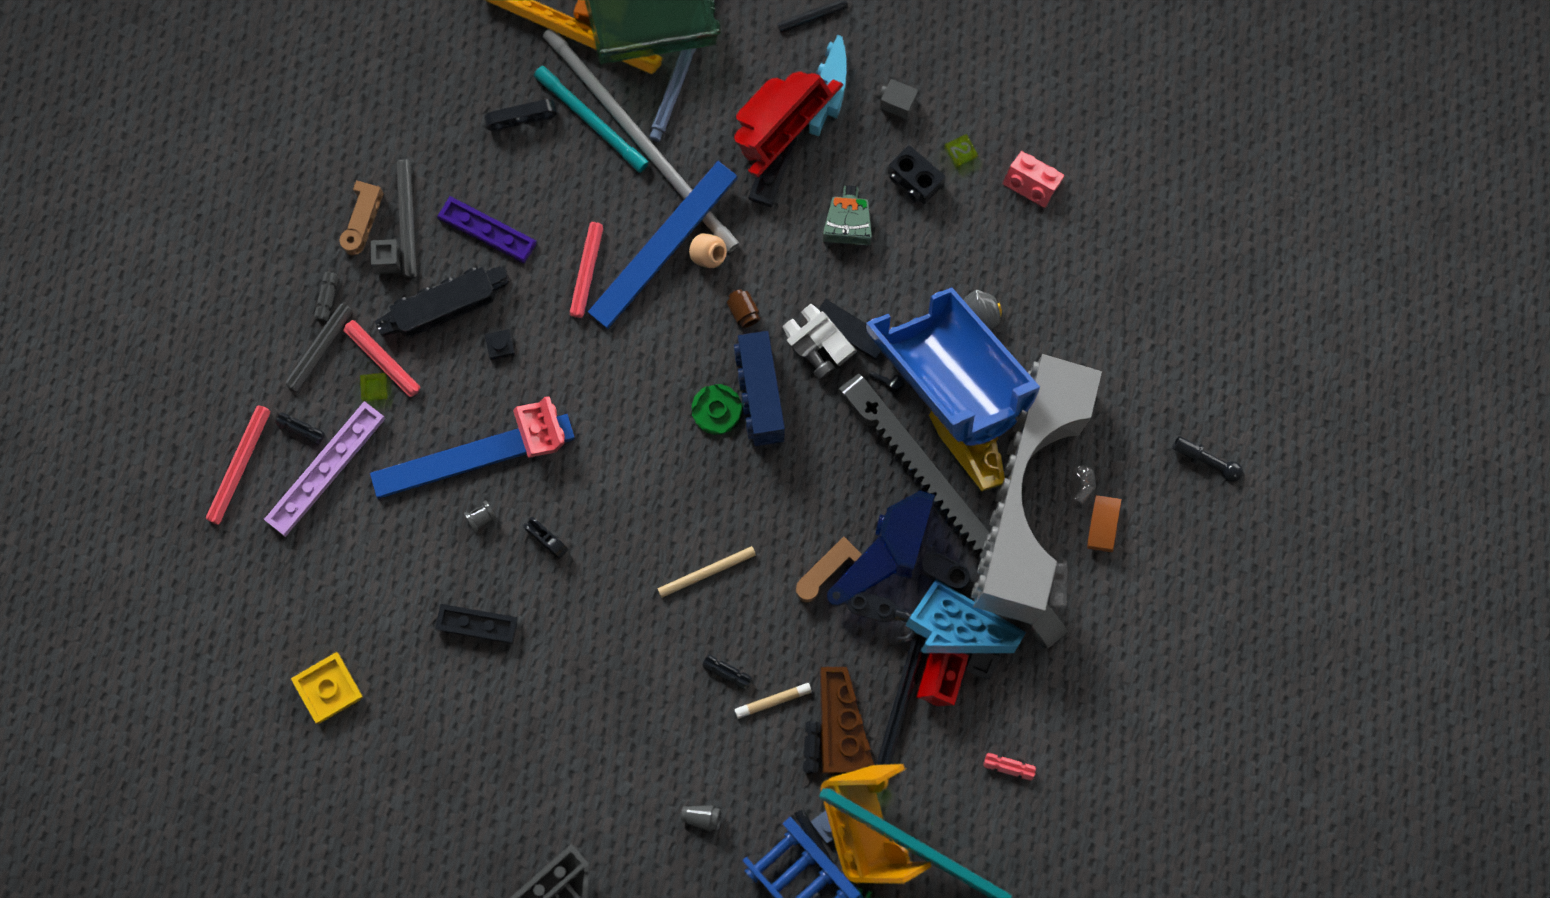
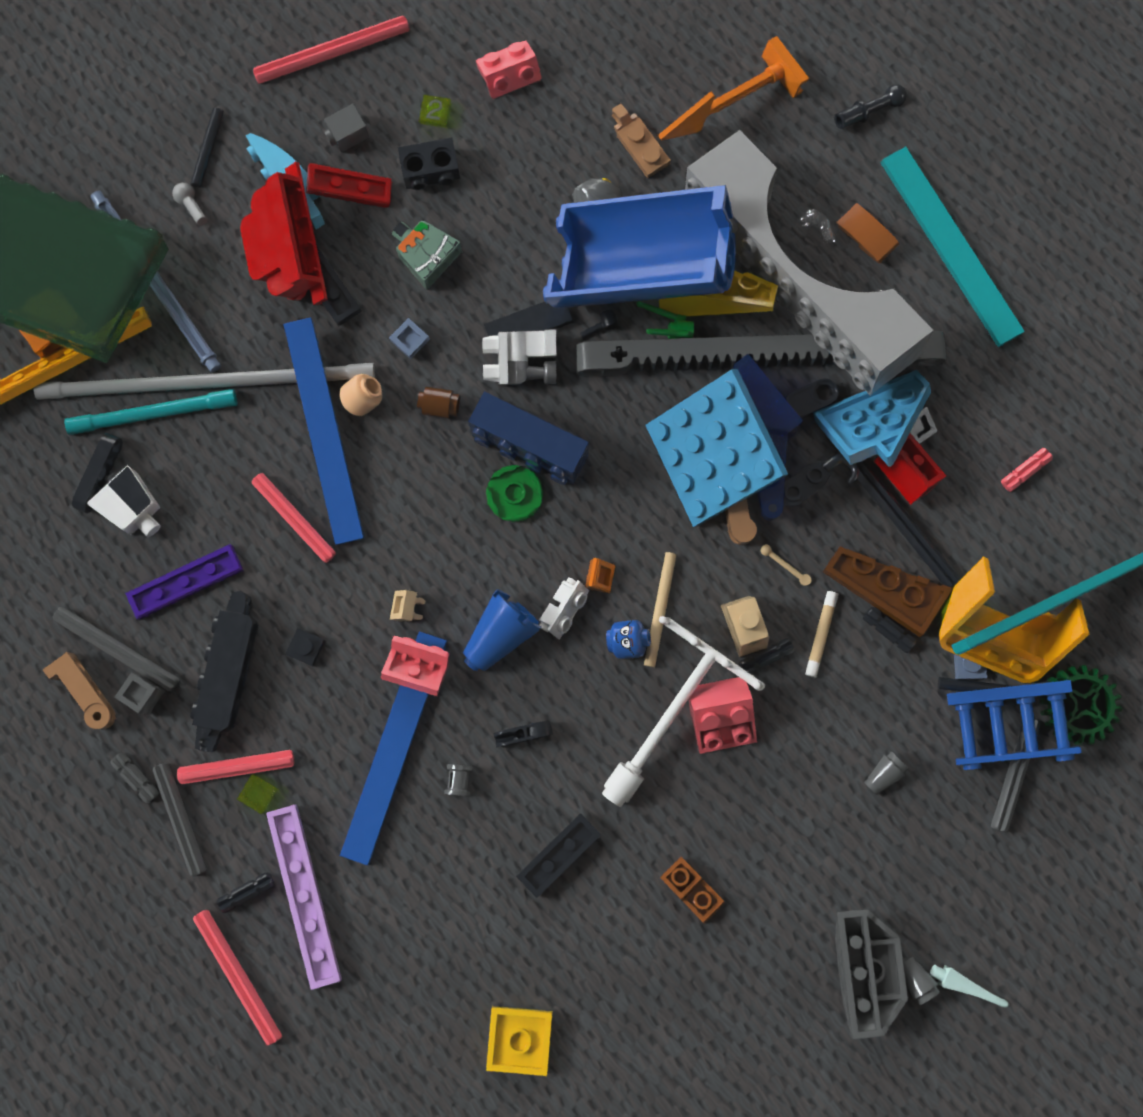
camera: 50 degrees left, 5 degrees up
(513, 151) = (127, 503): none -> white torso
(518, 736) = (692, 890): none -> dark orange slope
(566, 632) = (627, 777): none -> white piece
(578, 389) = (404, 604): none -> tan tile
(607, 468) = (499, 632): none -> blue cone
(660, 668) = (723, 715): none -> coral slope
(666, 563) = (628, 639): none -> blue head
(669, 503) = (572, 597): none -> white hinge
(700, 512) = (600, 575): none -> orange slope
(736, 639) = (746, 625): none -> tan torso
(765, 24) = (184, 194): none -> light grey bar
(775, 254) = (409, 338): none -> sand blue plate
(805, 660) = (803, 579): none -> tan hinge
(849, 523) = (716, 448): none -> dark azure plate
(855, 131) = (348, 185): none -> red tile
(923, 438) = (678, 329): none -> green plant
(952, 46) = (331, 49): none -> coral axle
(1049, 311) = (639, 142): none -> medium nougat hinge
(1095, 336) = (781, 68): none -> orange piece
(1143, 594) = (952, 247): none -> teal tile

